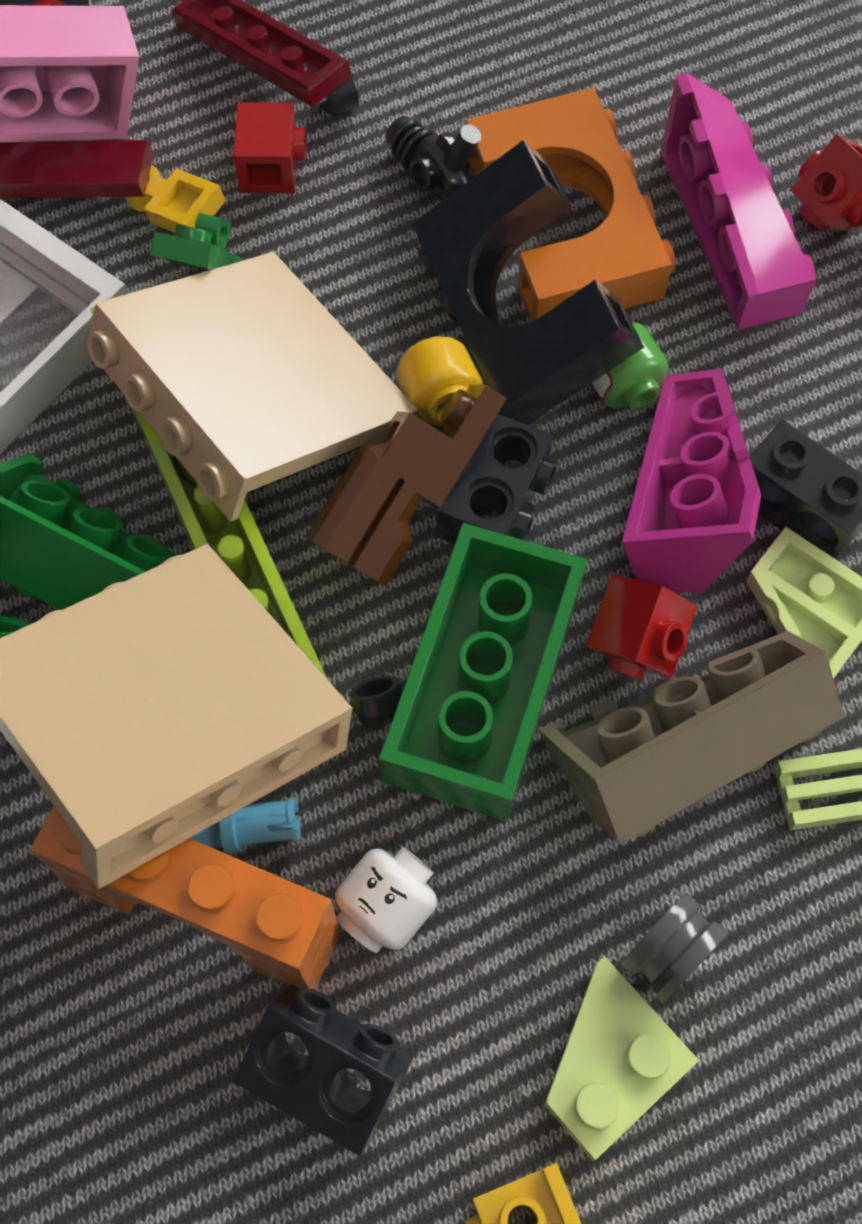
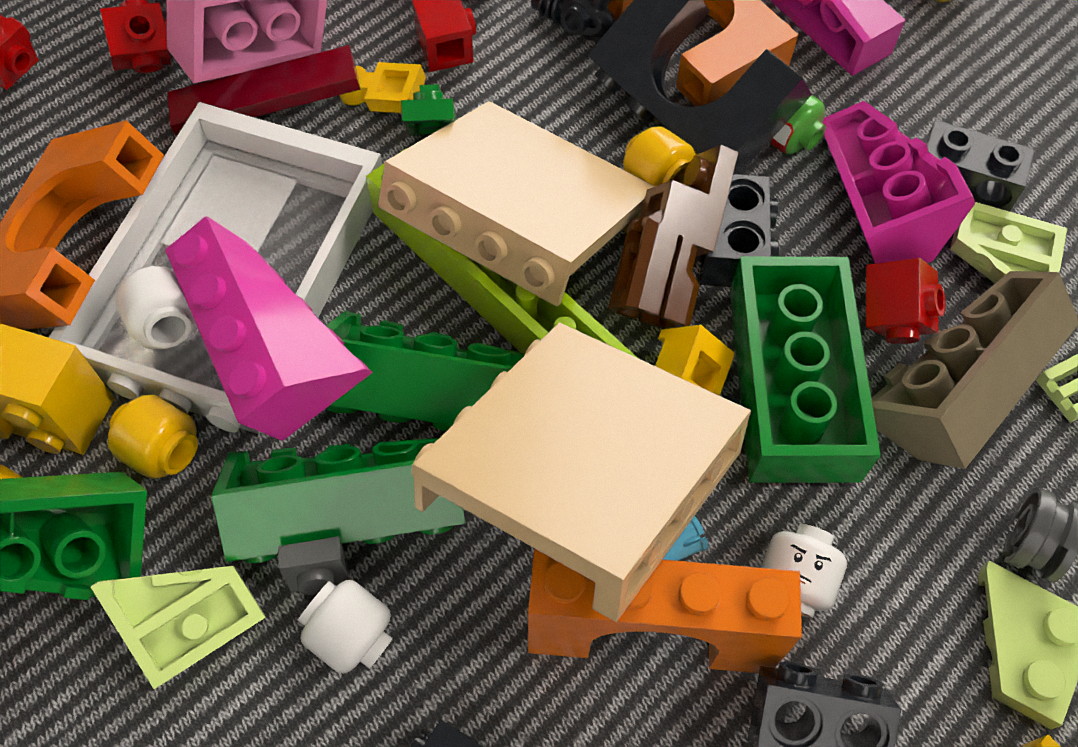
camera: 20 degrees left, 5 degrees down
(362, 636) = (695, 357): none -> yellow brick

